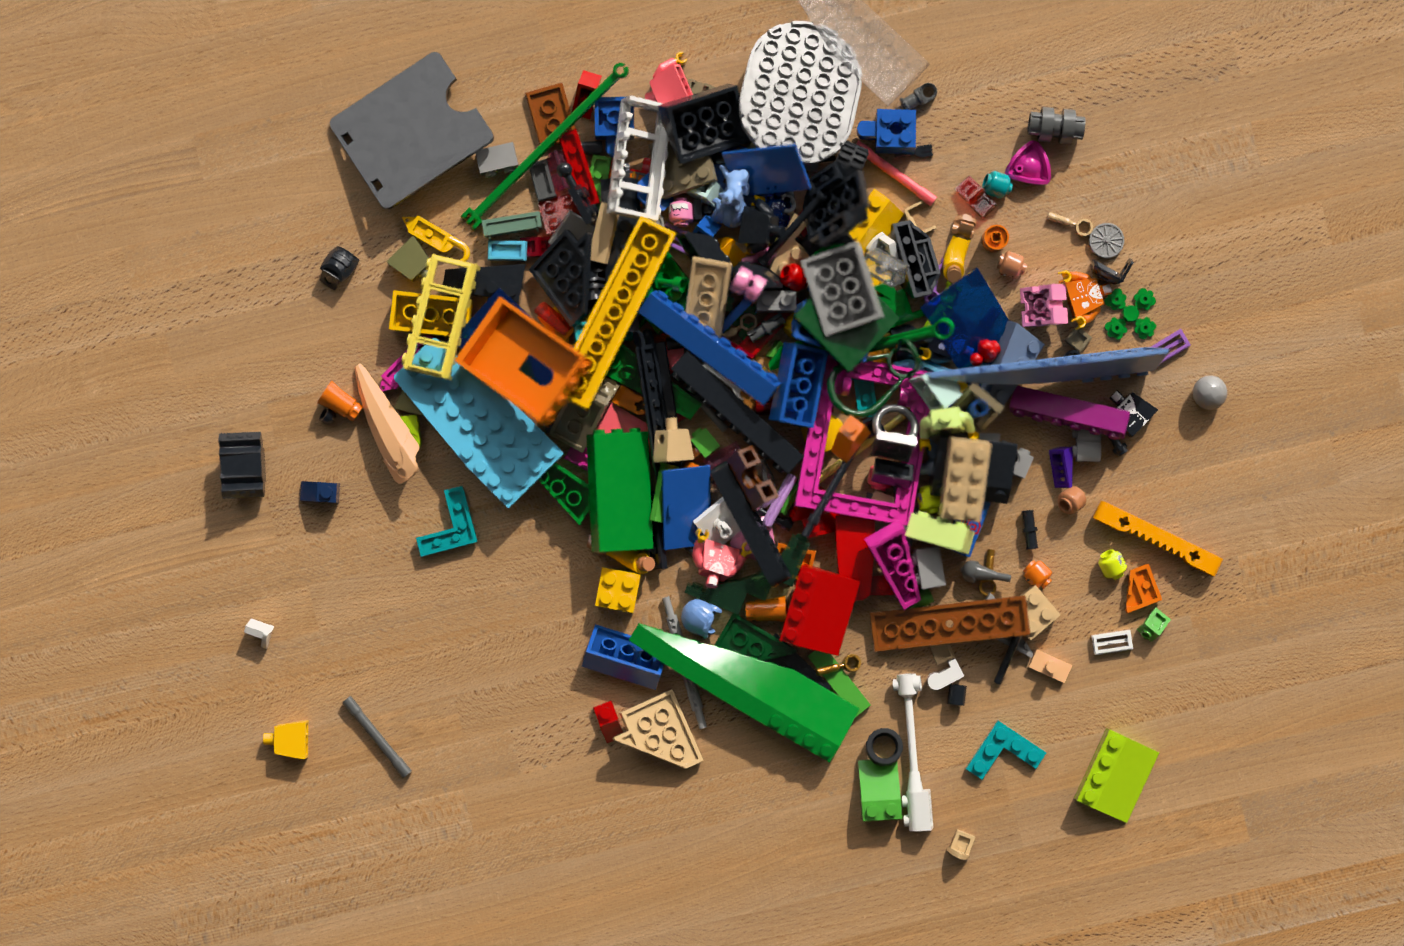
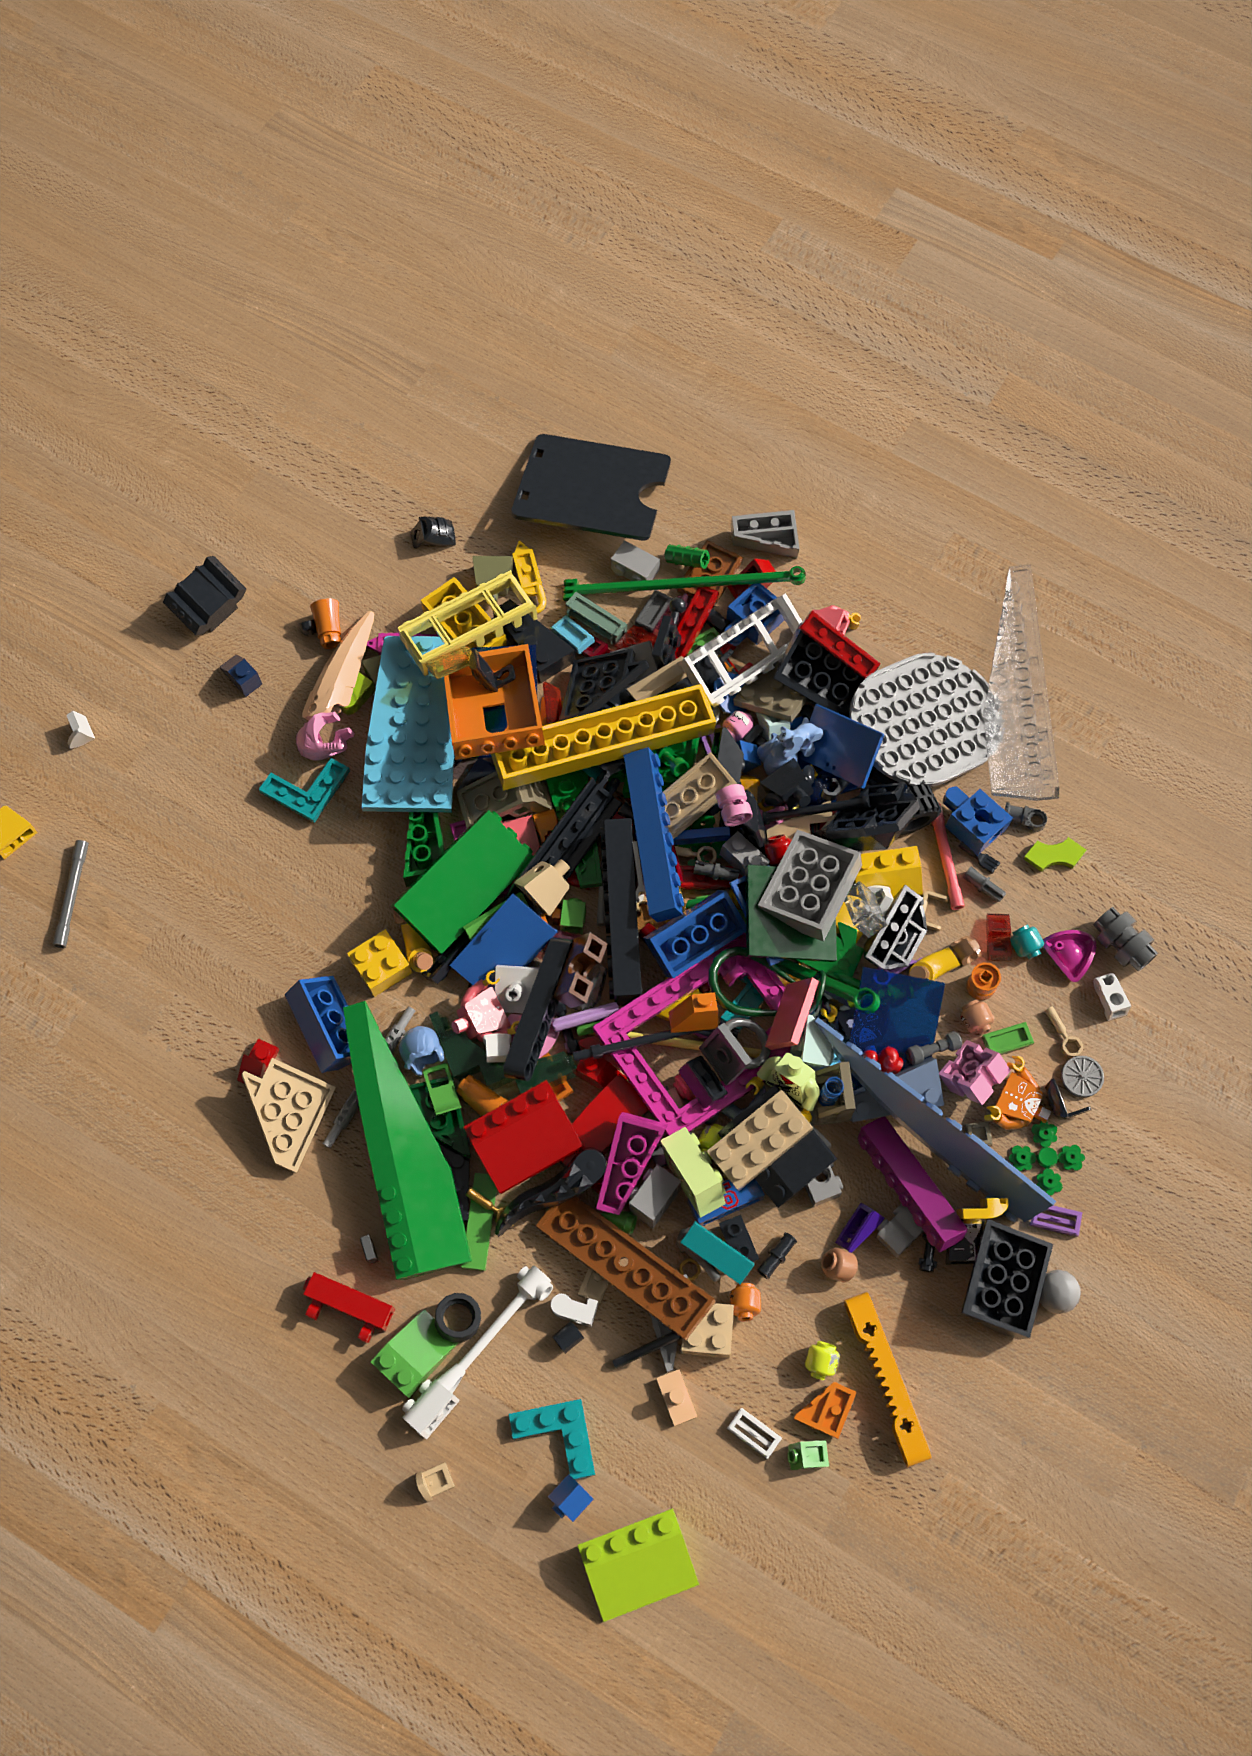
camera: 45 degrees right, 20 degrees down
(426, 495) = (310, 742): none -> bright pink piece
(465, 359) = (449, 662): none -> clear yellow slope
(496, 345) = (485, 675): none -> black piece
(527, 120) = (687, 556): none -> green axle
(563, 49) = (767, 532): none -> light grey wedge
(702, 101) = (838, 645): none -> red tile
(743, 630) = (443, 1097): none -> bright green piece
(748, 572) = (497, 1046): none -> white tile
(792, 760) = (369, 1249): none -> dark grey tile
(812, 800) = (349, 1302): none -> red brick
(874, 606) = (577, 1177): none -> black animal
(909, 382) = (792, 1014): none -> coral tile
(936, 169) = (984, 884): none -> dark grey axle
(966, 97) = (1064, 853): none -> lime tile
(997, 564) = (717, 1252): none -> teal tile
(1001, 544) = (738, 1237): none -> black hinge
(1012, 299) = (916, 1054): none -> dark grey piece
(1041, 260) = (1008, 1039): none -> bright green tile
(1046, 779) = (570, 1498): none -> blue brick
(1078, 170) = (1111, 996): none -> white leg
(1129, 393) = (988, 1209): none -> yellow slope
(1176, 416) = (1007, 1280): none -> black slope

